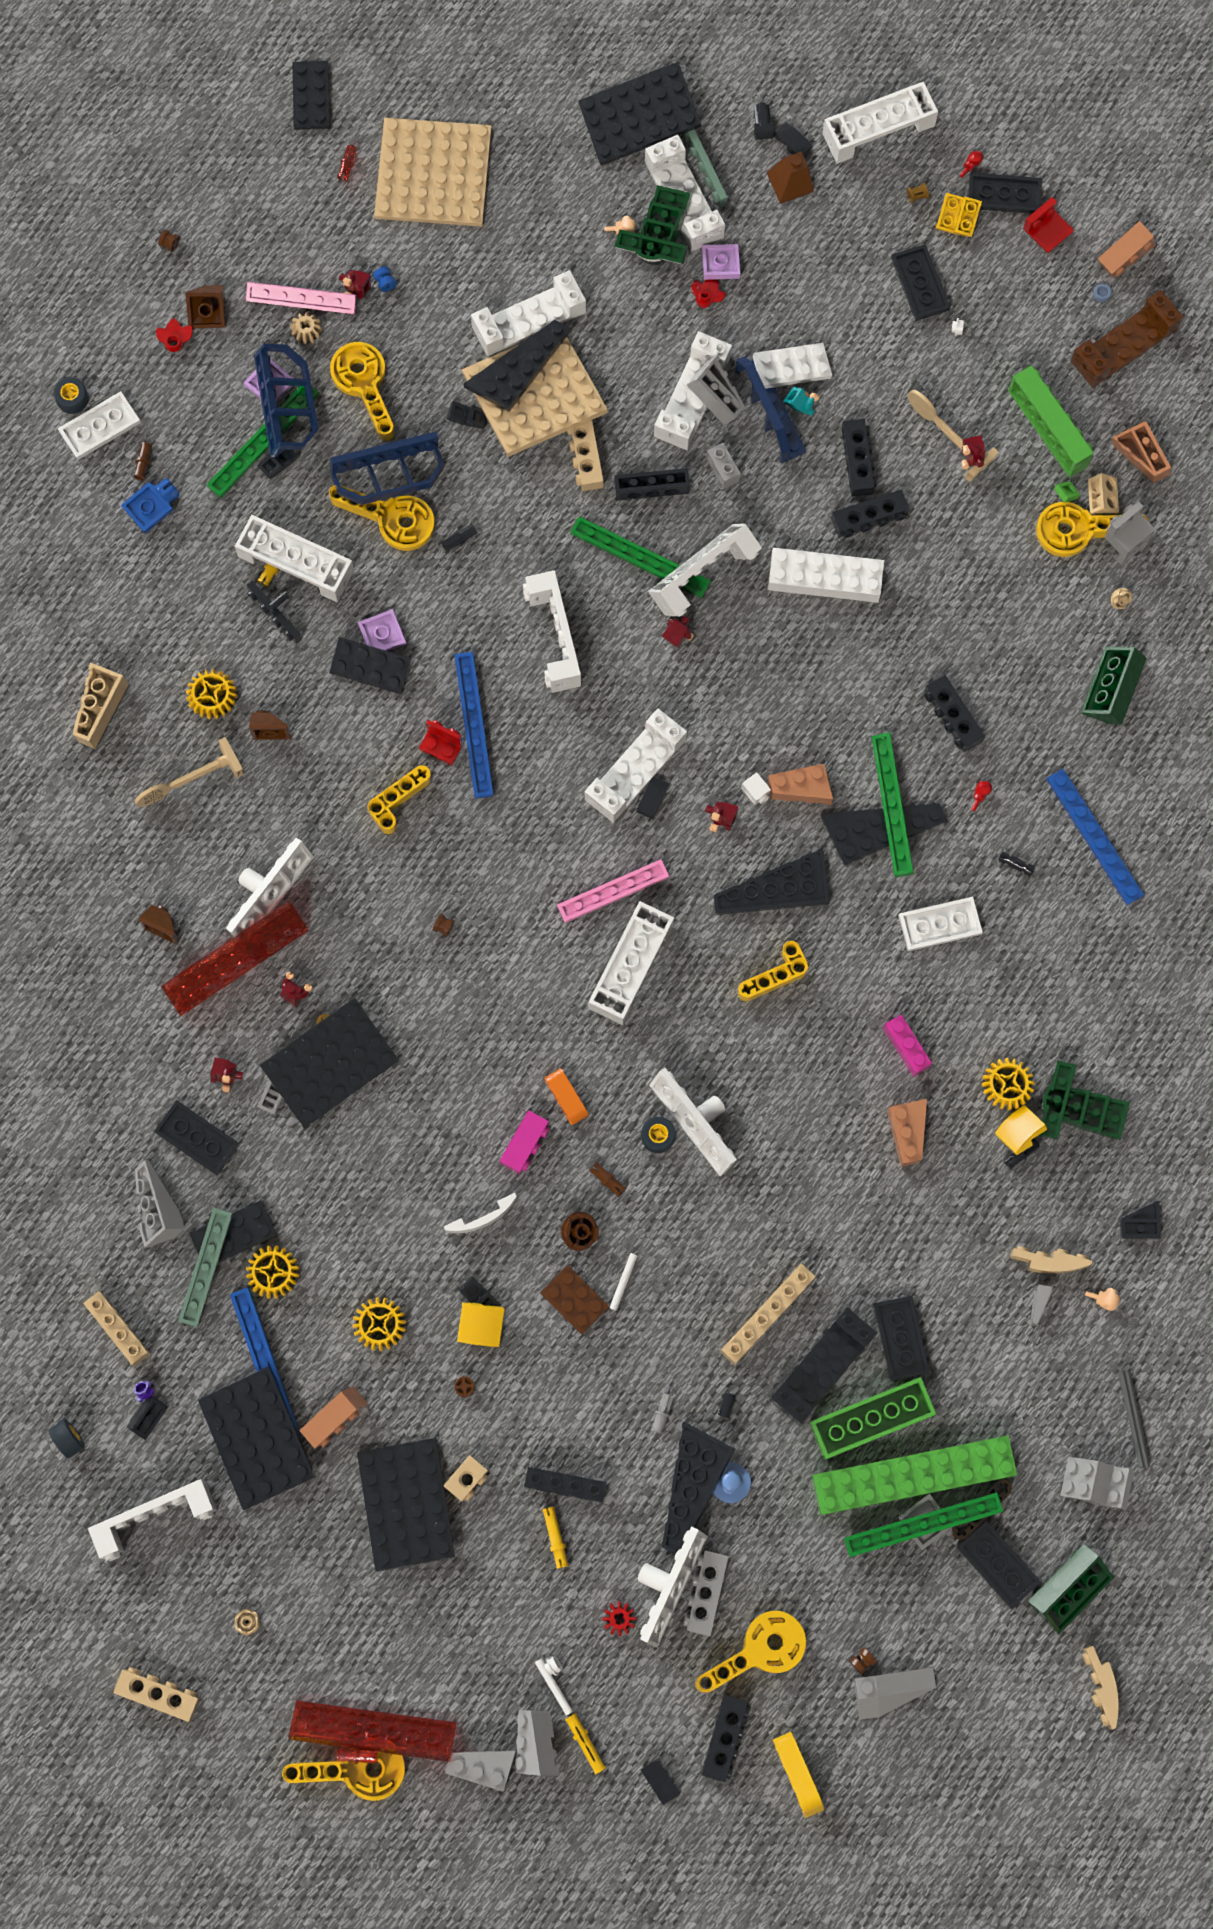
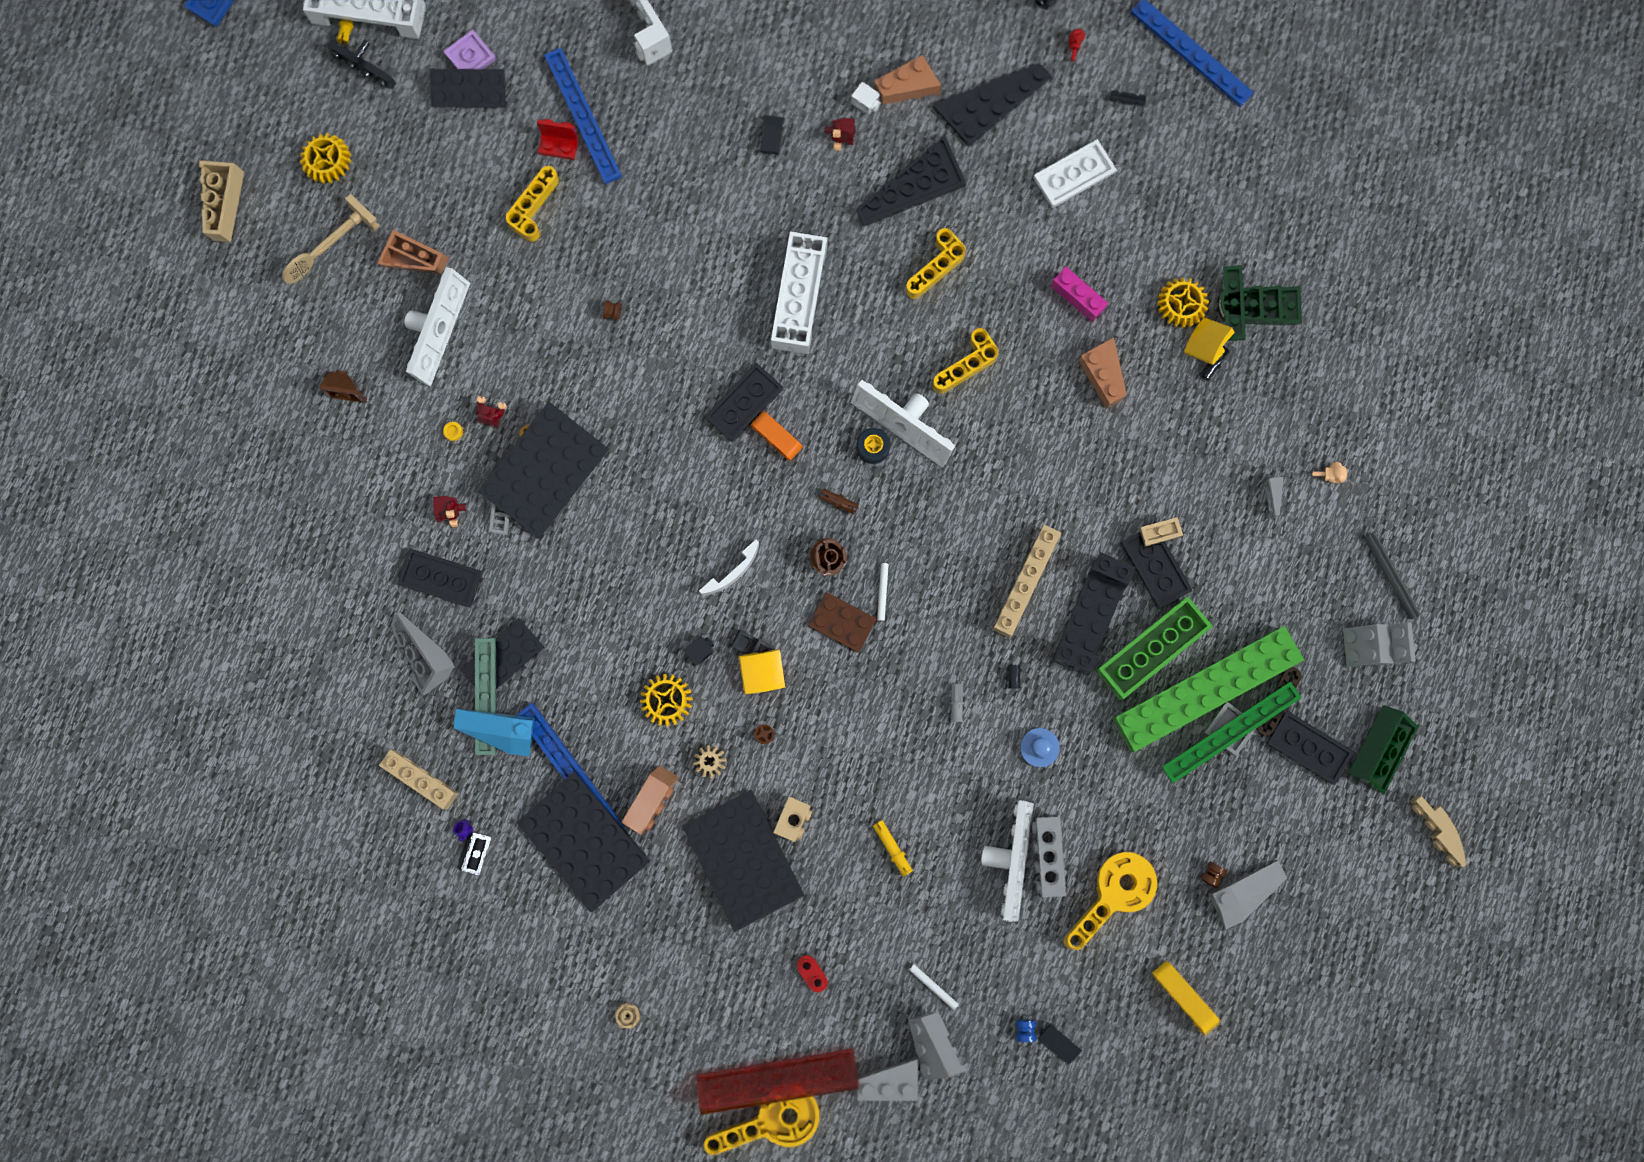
camera: 15 degrees left, 5 degrees up
(66, 1438) = (402, 897): black wheel -> none
(105, 1534) = (471, 981): white plate -> none
(126, 1689) = (532, 1113): tan brick -> none
(213, 1307) = (502, 731): none -> dark azure wedge
(234, 958) = (423, 398): clear red plate -> none
(252, 997) = (453, 431): none -> yellow tile
(264, 813) = (411, 255): none -> nougat wedge
(268, 727) = (389, 173): reddish brown slope -> none
(273, 1263) = (541, 683): yellow gear -> none
(357, 1755) = (769, 1110): clear red axle -> none
(407, 1391) = (709, 768): none -> tan gear
(426, 1285) = (699, 650): none -> black brick
(439, 1636) = (812, 973): none -> red plate
(525, 1142) = (751, 490): dark pink brick -> none
(544, 1054) = (744, 402): none -> black plate
(553, 1666) = (927, 968): white plate -> none
(565, 1484) = (887, 796): black brick -> none
(596, 1765) = (961, 1013): yellow pin -> none
(613, 891) = (761, 232): bright pink plate -> none
(625, 1616) = (981, 901): red gear -> none
(630, 1752) = (1027, 1028): none -> blue wheel
(636, 766) = (748, 109): white plate -> none
(695, 1478) = (1006, 750): black wing -> none
(711, 1768) = (1115, 1017): black brick -> none
(770, 1081) = (963, 366): none -> yellow beam
(892, 805) = (997, 75): green plate -> none
(915, 1305) = (1161, 531): none -> tan plate
(1057, 1263) = (1277, 454): tan slope -> none
(1142, 1223) = (1345, 394): black wing -> none

